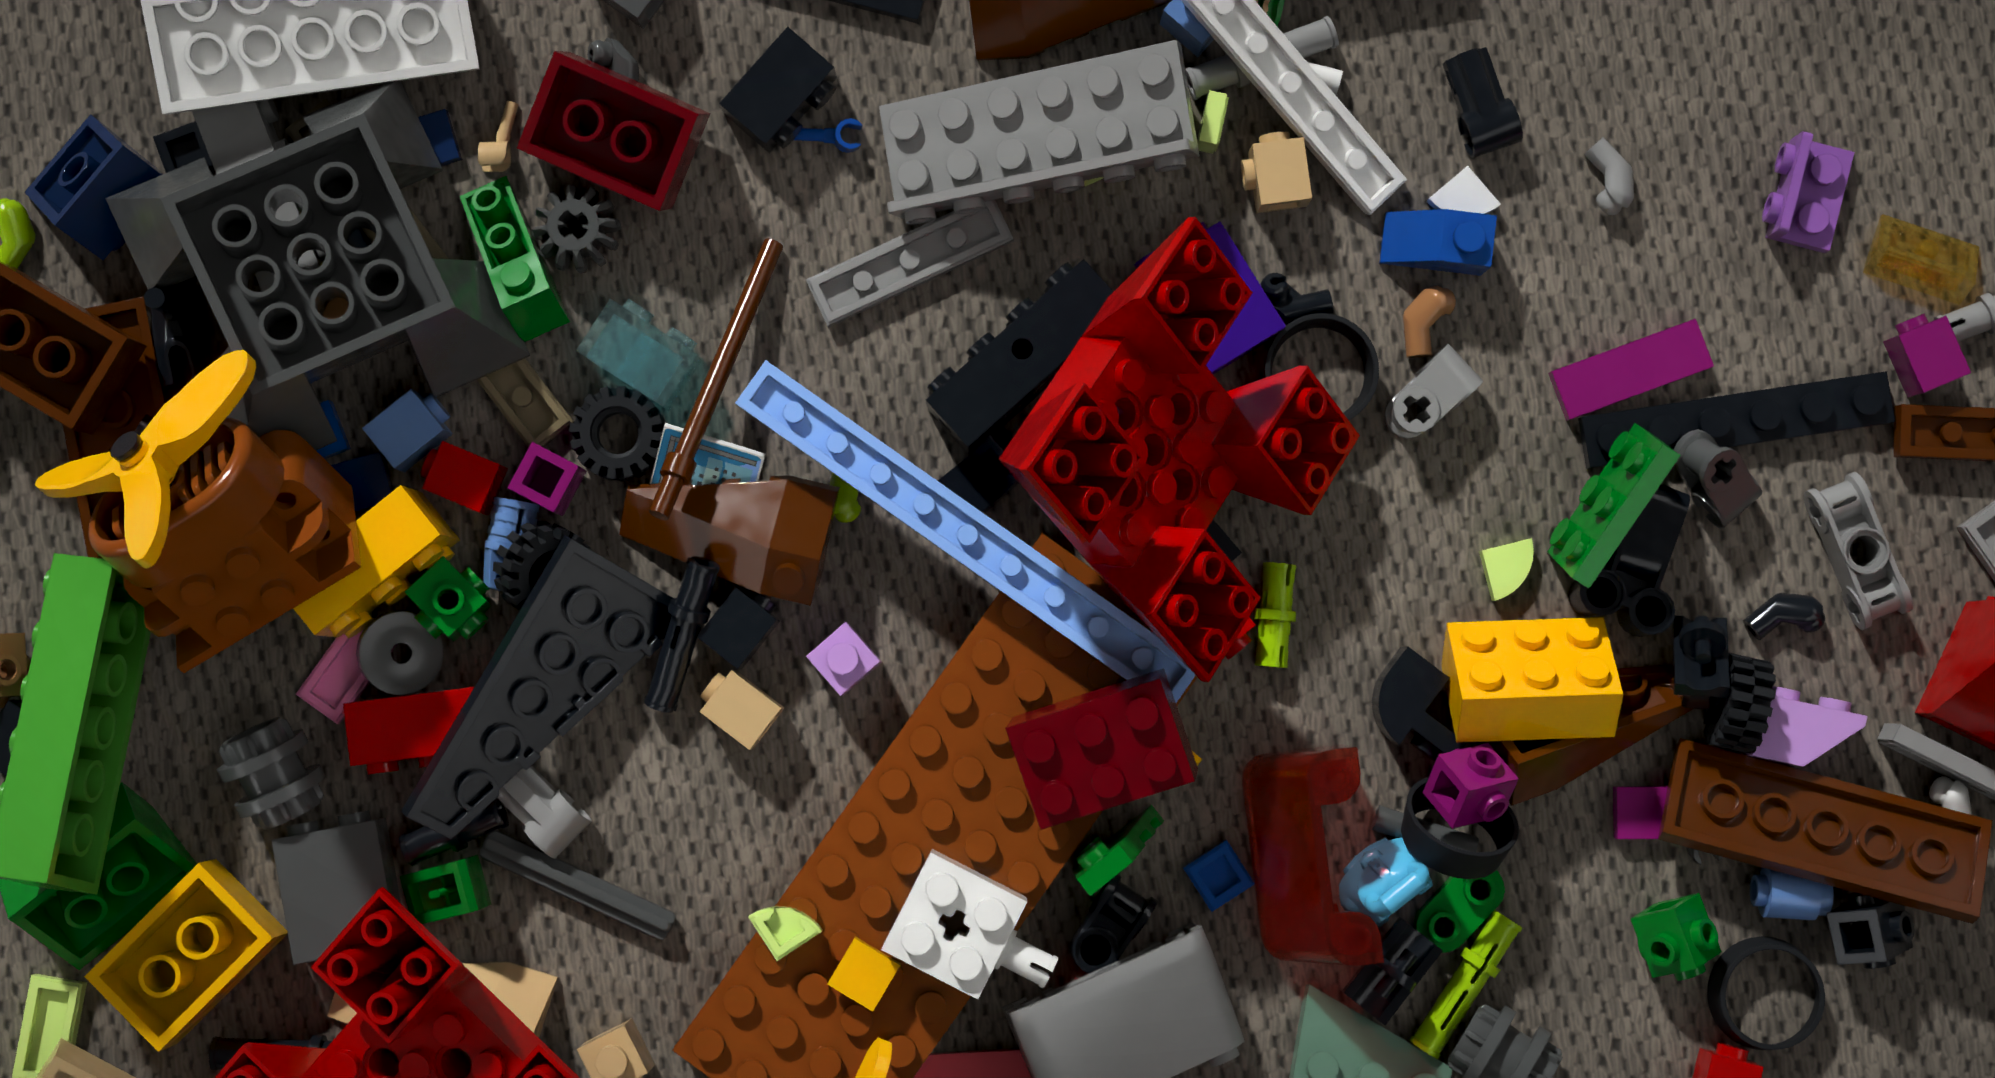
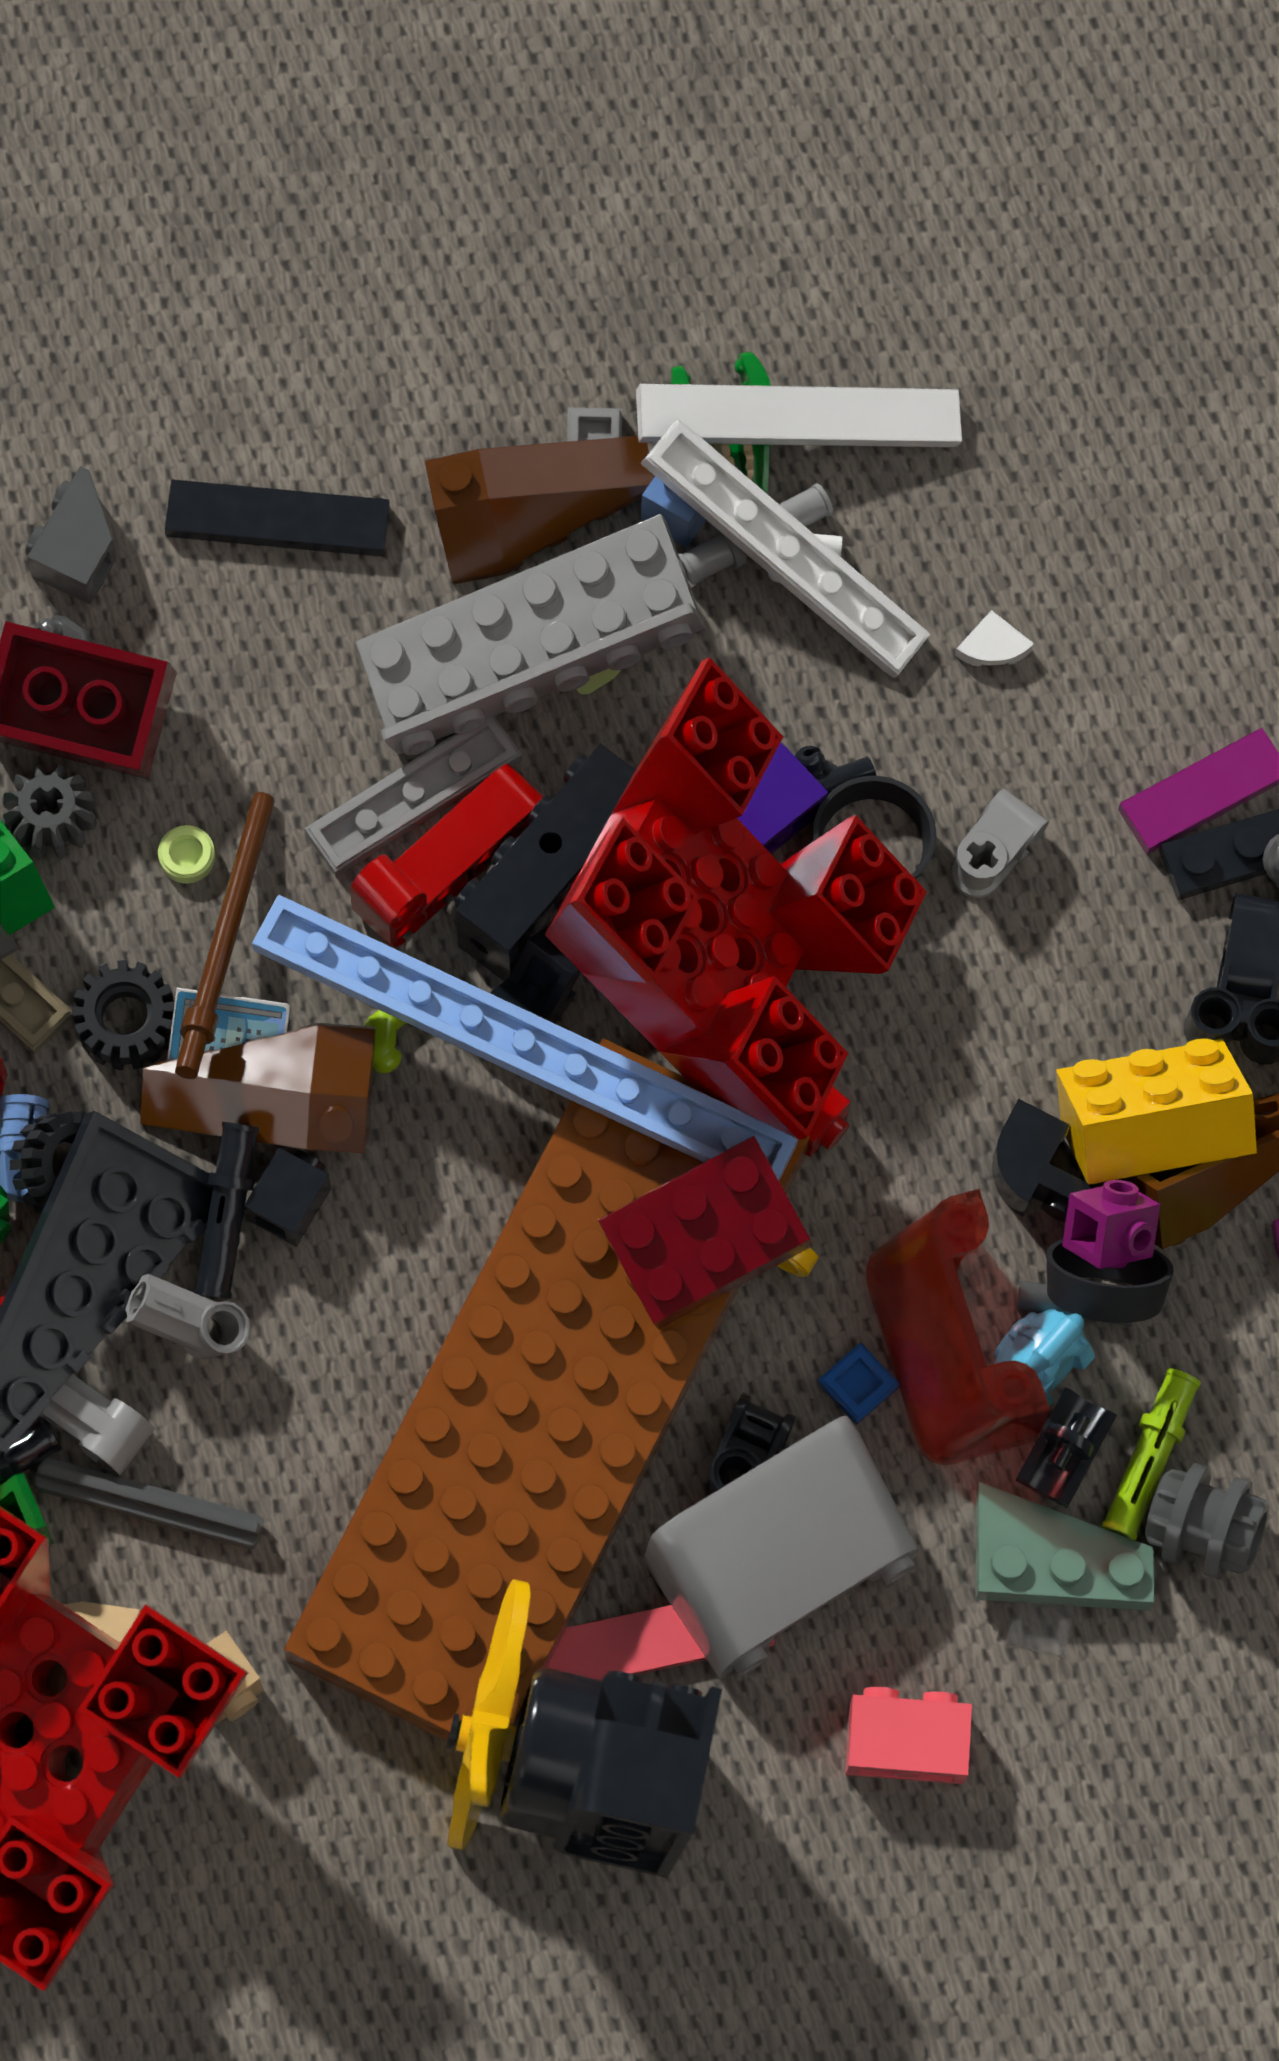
camera: 10 degrees left, 15 degrees down
(547, 479) = (56, 1067): magenta brick -> none
(629, 731) = (185, 1317): none -> light grey piece
(640, 353) = (134, 925): clear light blue brick -> none
(696, 286) = (186, 854): none -> yellowish green tile
(740, 708) = (302, 1281): tan brick -> none
(780, 91) = (247, 640): black brick -> none
(784, 928) = (389, 1491): yellowish green tile -> none
(832, 135) = (309, 680): blue hand -> none
(844, 659) = (409, 1210): lavender brick -> none
(864, 974) = (485, 1524): yellow tile -> none
(931, 327) = (412, 888): none -> red beam
(968, 957) = (613, 1454): white brick -> none
(1104, 860) = (732, 1360): green wing -> none
(1212, 121) = (713, 604): yellowish green tile -> none
(1275, 615) = (871, 1097): lime pin -> none
(1277, 173) = (792, 646): tan brick -> none
(1421, 315) = (971, 767): medium nougat arm -> none
(1439, 240) = (975, 687): blue slope -> none
(1461, 908) = (1130, 1373): green plate -> none
(1484, 112) = (997, 554): black piece -> none
(1507, 567) = (1111, 1011): yellowish green tile -> none
(1611, 504) = (1205, 914): green plate -> none
(1618, 177) = (1151, 598): light grey arm -> none

